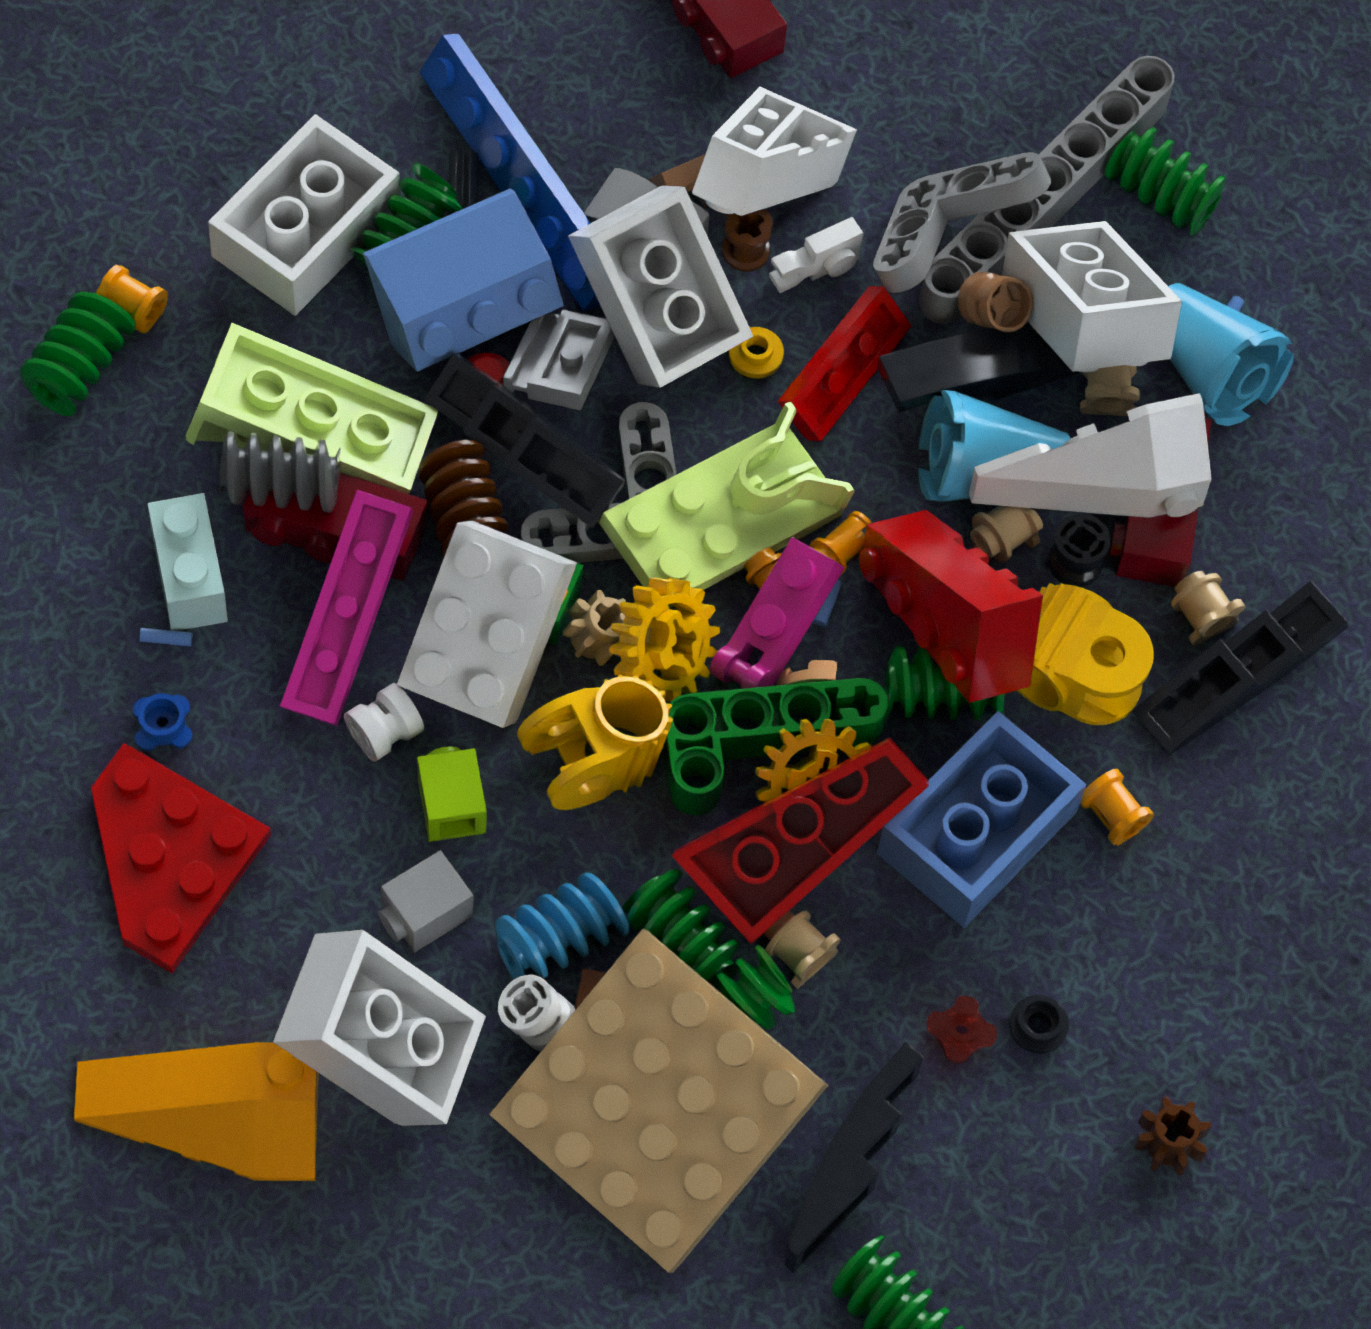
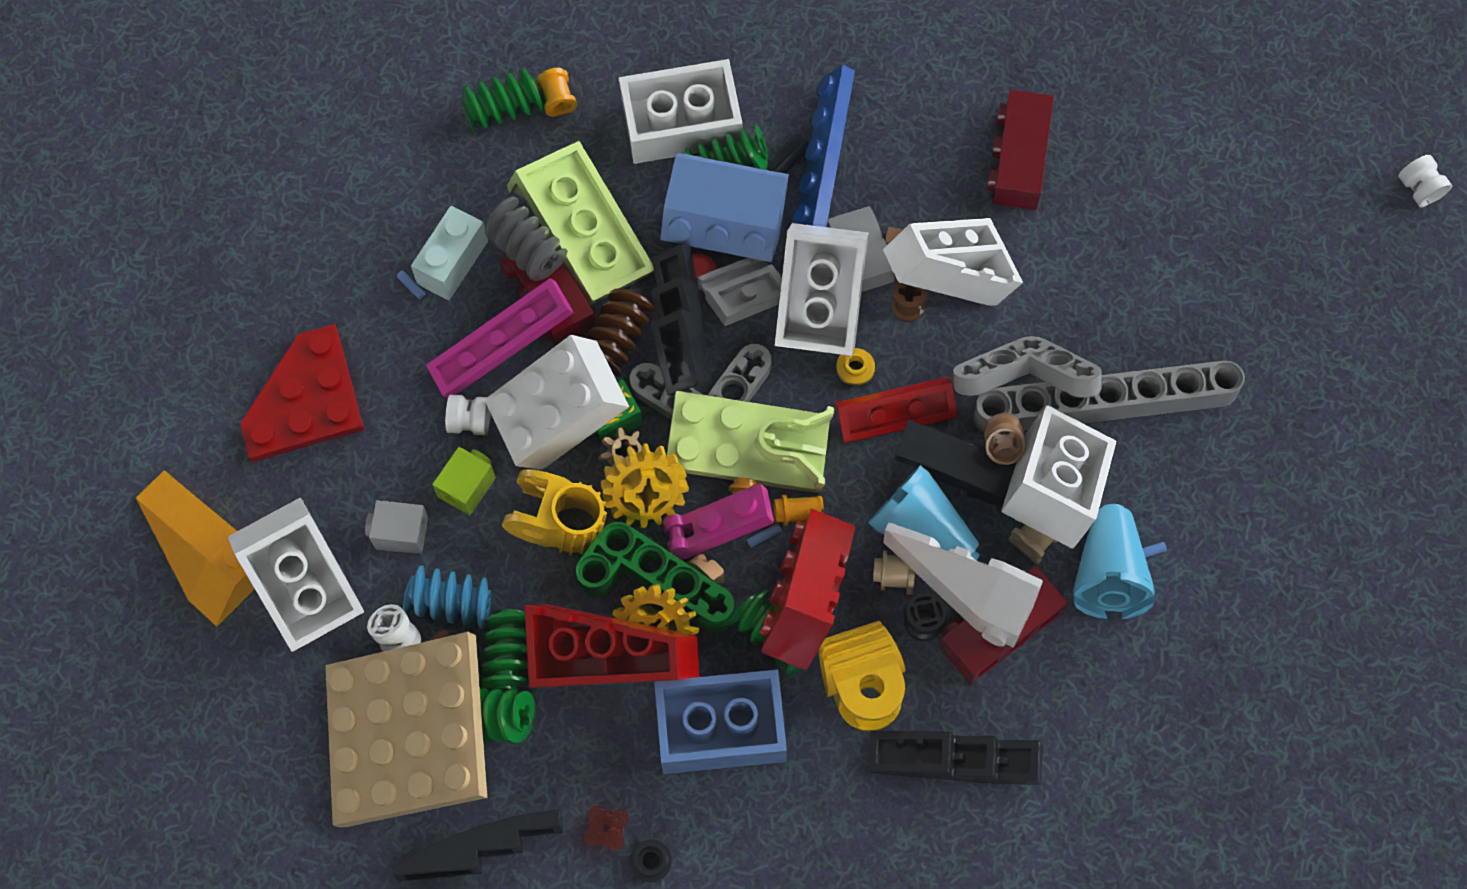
camera: 50 degrees right, 5 degrees up
(158, 707) = (362, 318): blue plate -> none
(800, 945) = (563, 710): tan brick -> none
(825, 252) = (945, 340): white plate -> none
(1116, 807) = (806, 777): light orange bush -> none
(1165, 180) = (1181, 444): green piece -> none
(1206, 606) = (967, 705): tan brick -> none

